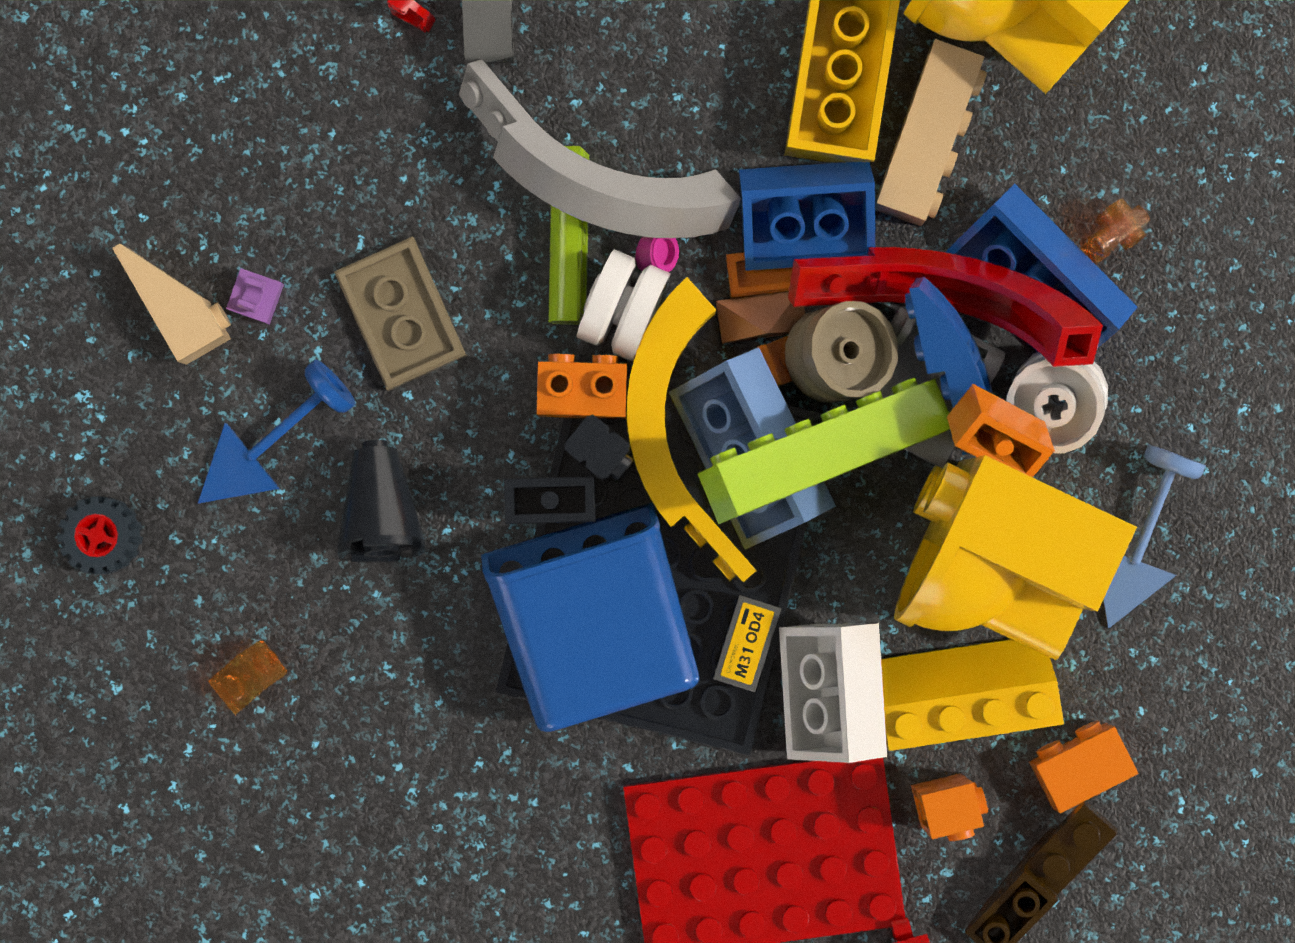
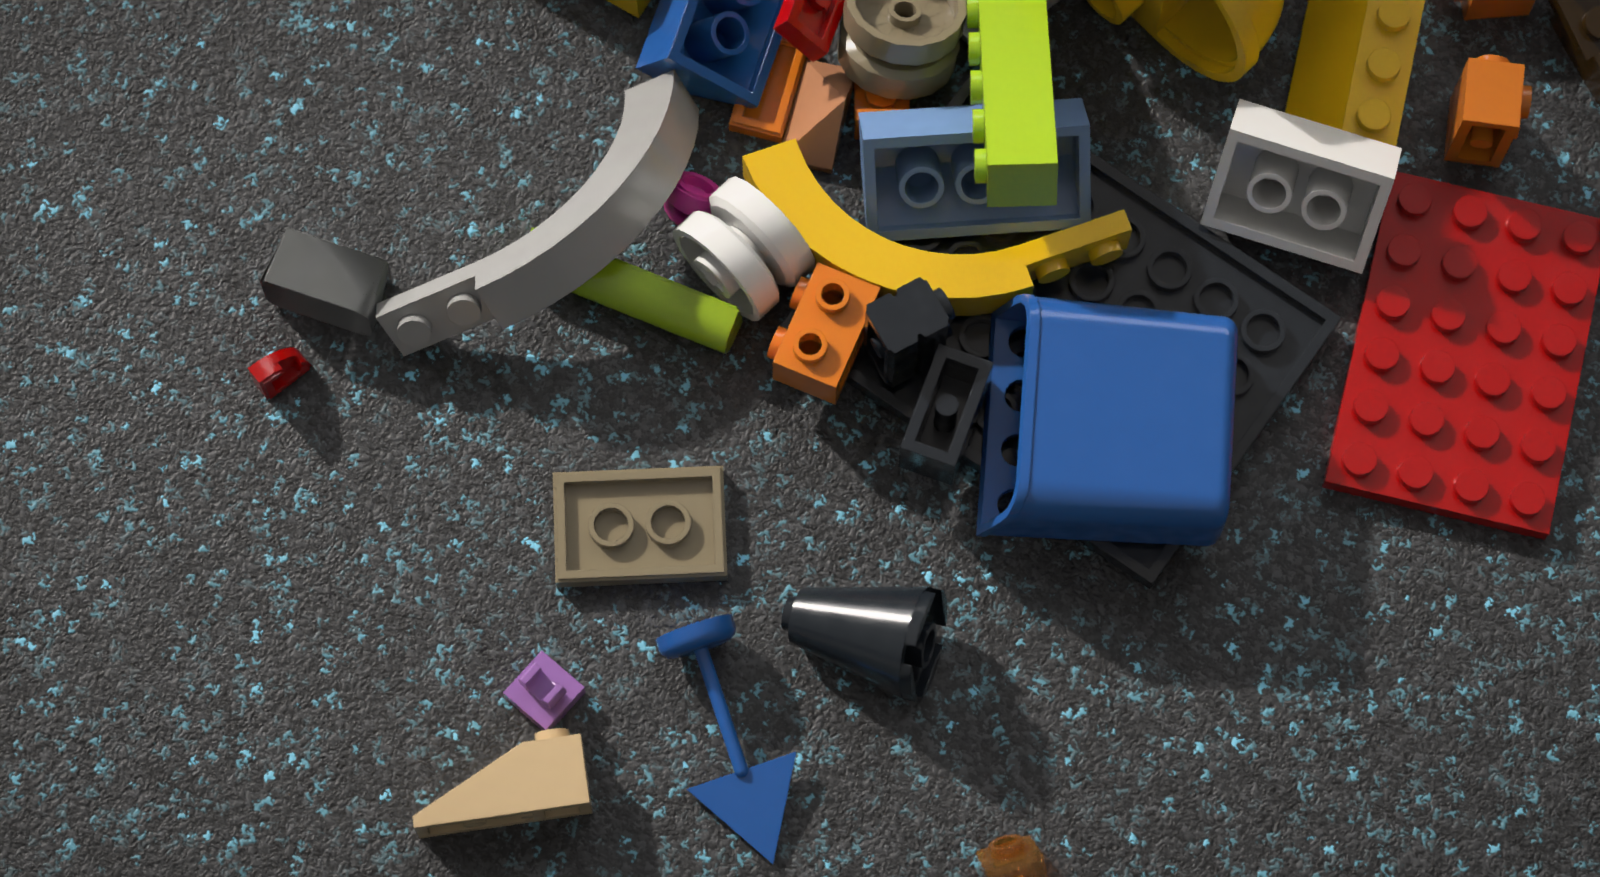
camera: 70 degrees left, 15 degrees down
(747, 643) = (1204, 265): tile -> none

